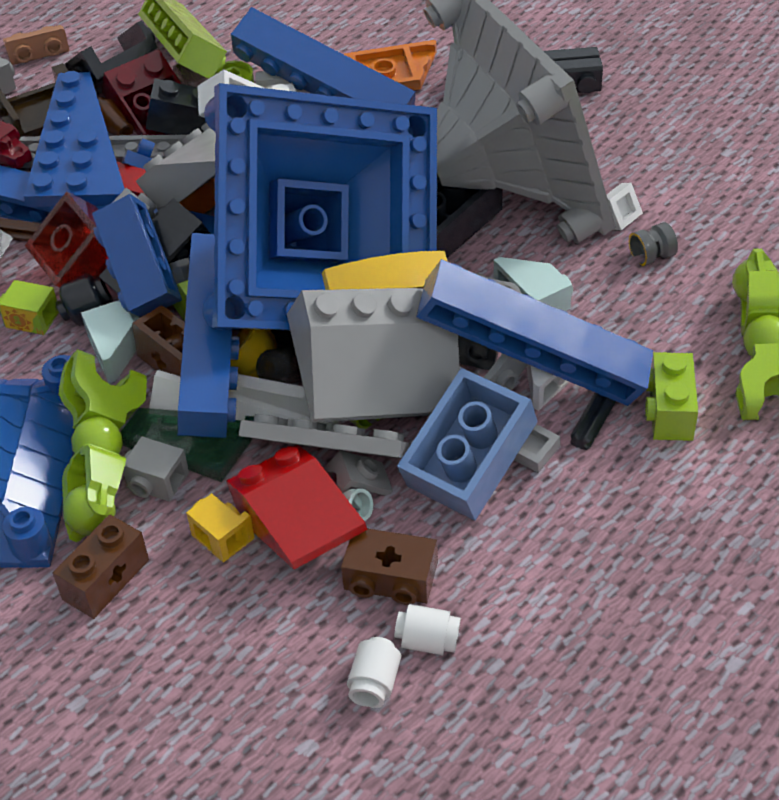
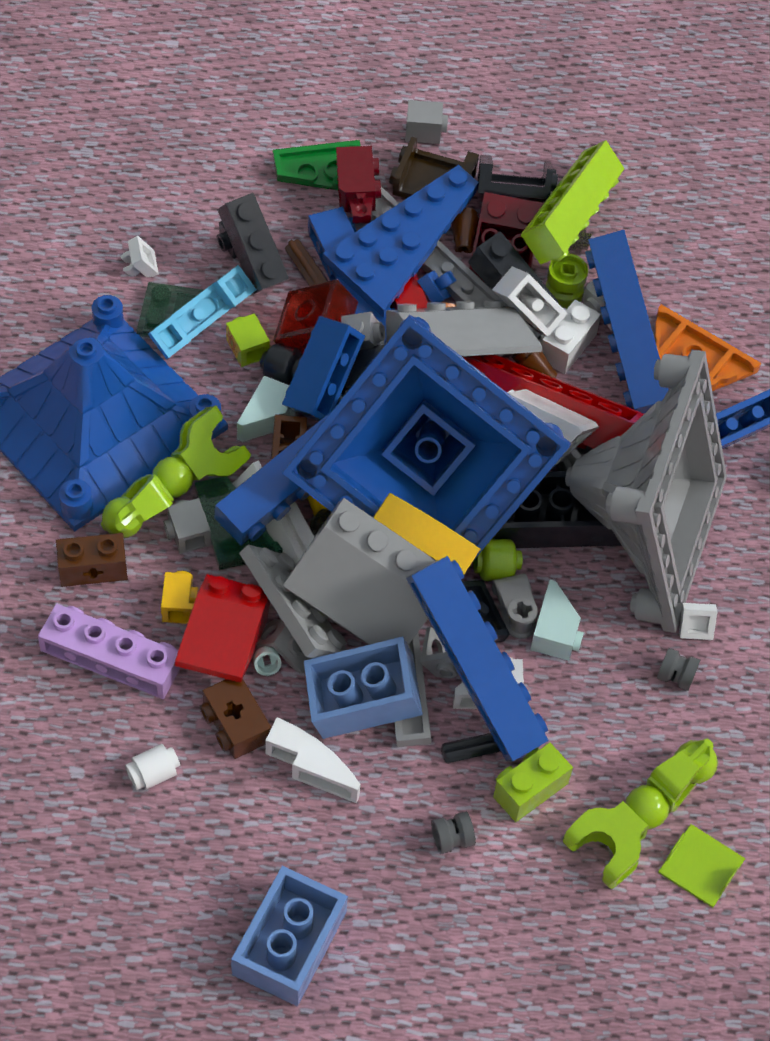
camera: 40 degrees right, 10 degrees up
(36, 44) = (493, 114): nougat bracket -> none
(211, 620) = (109, 650): none -> lavender brick
(427, 629) = (209, 773): white brick -> none
(497, 537) = (311, 760): none -> white slope
(670, 483) = (453, 832): none -> dark grey wheel
(673, 678) = (289, 935): none -> medium blue brick

